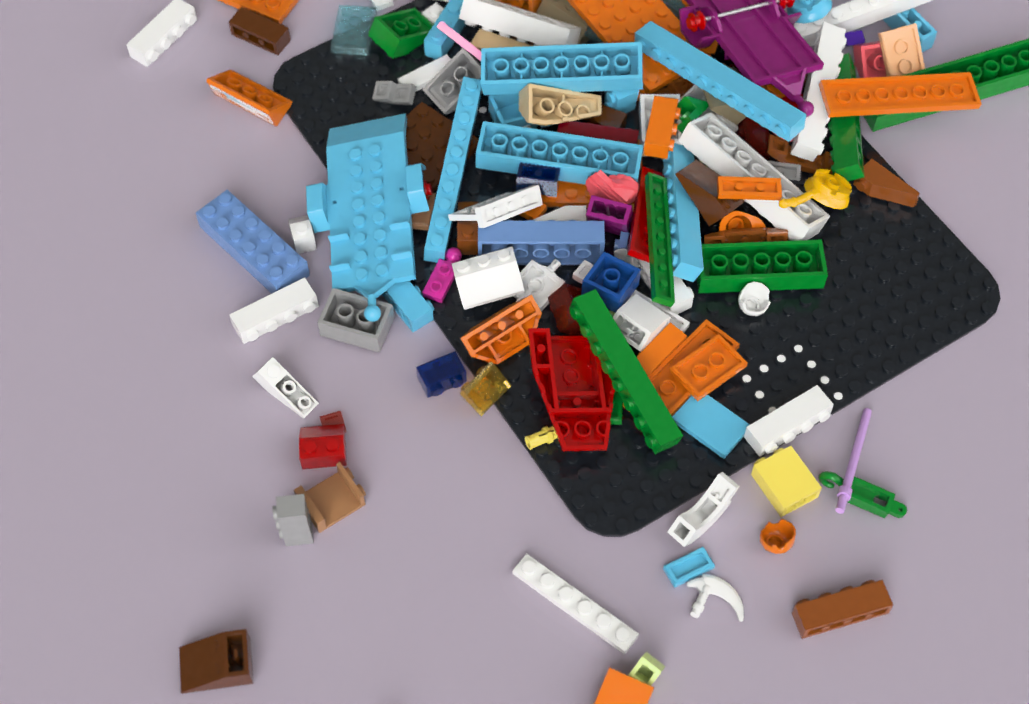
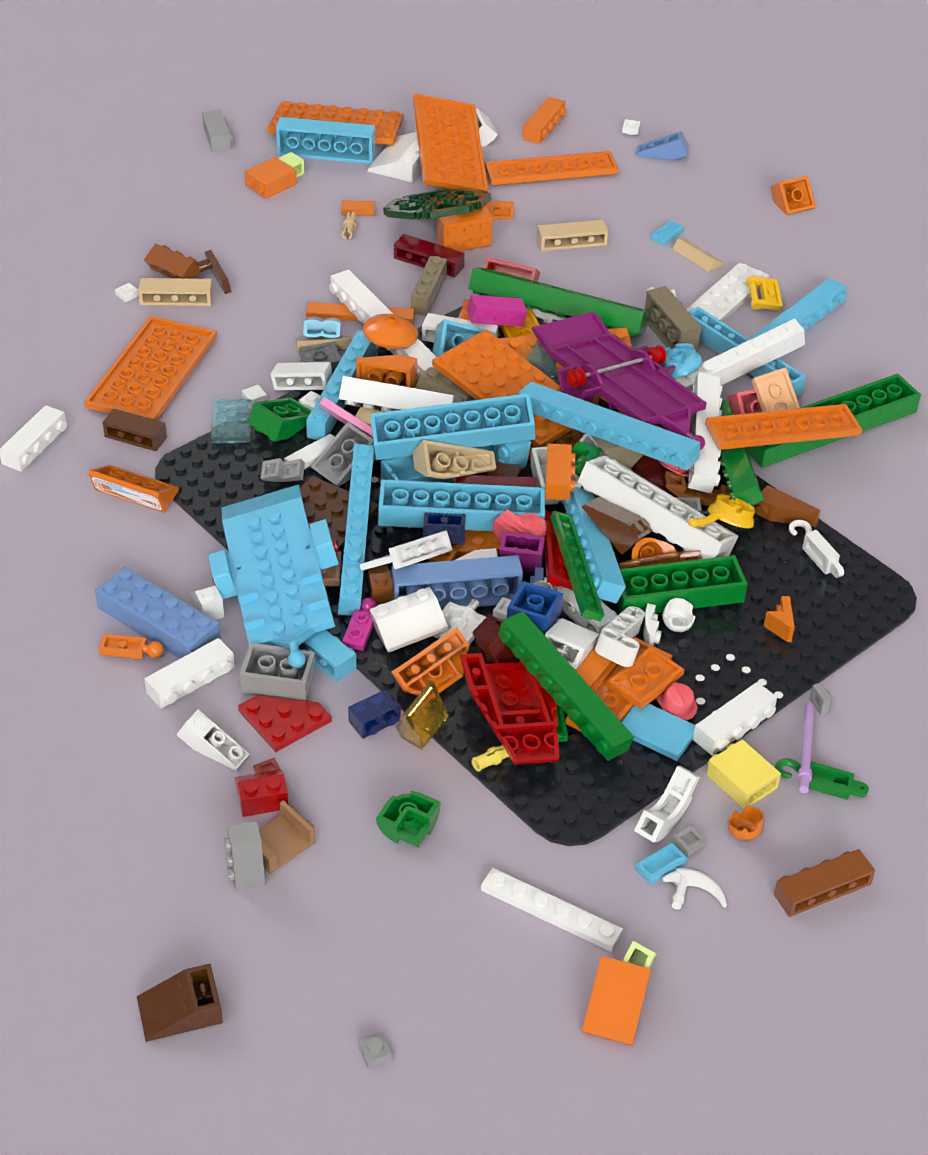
camera: 10 degrees left, 15 degrees down
(221, 275) = (129, 647): none -> orange plate
(355, 369) = (282, 719): none -> red plate
(455, 492) = (408, 817): none -> green brick
(682, 325) = (617, 637): none -> white beam
(719, 547) = (689, 840): none -> light grey plate
(724, 311) = (651, 625): none -> white slope
(737, 394) = (678, 701): none -> coral piece
(749, 188) = (656, 512): orange plate -> none
(854, 38) = (729, 389): dark purple slope -> none
(856, 316) = (781, 620): none -> orange slope
(879, 405) = (820, 698): none -> light grey plate
(910, 236) = (818, 549): none -> white piece

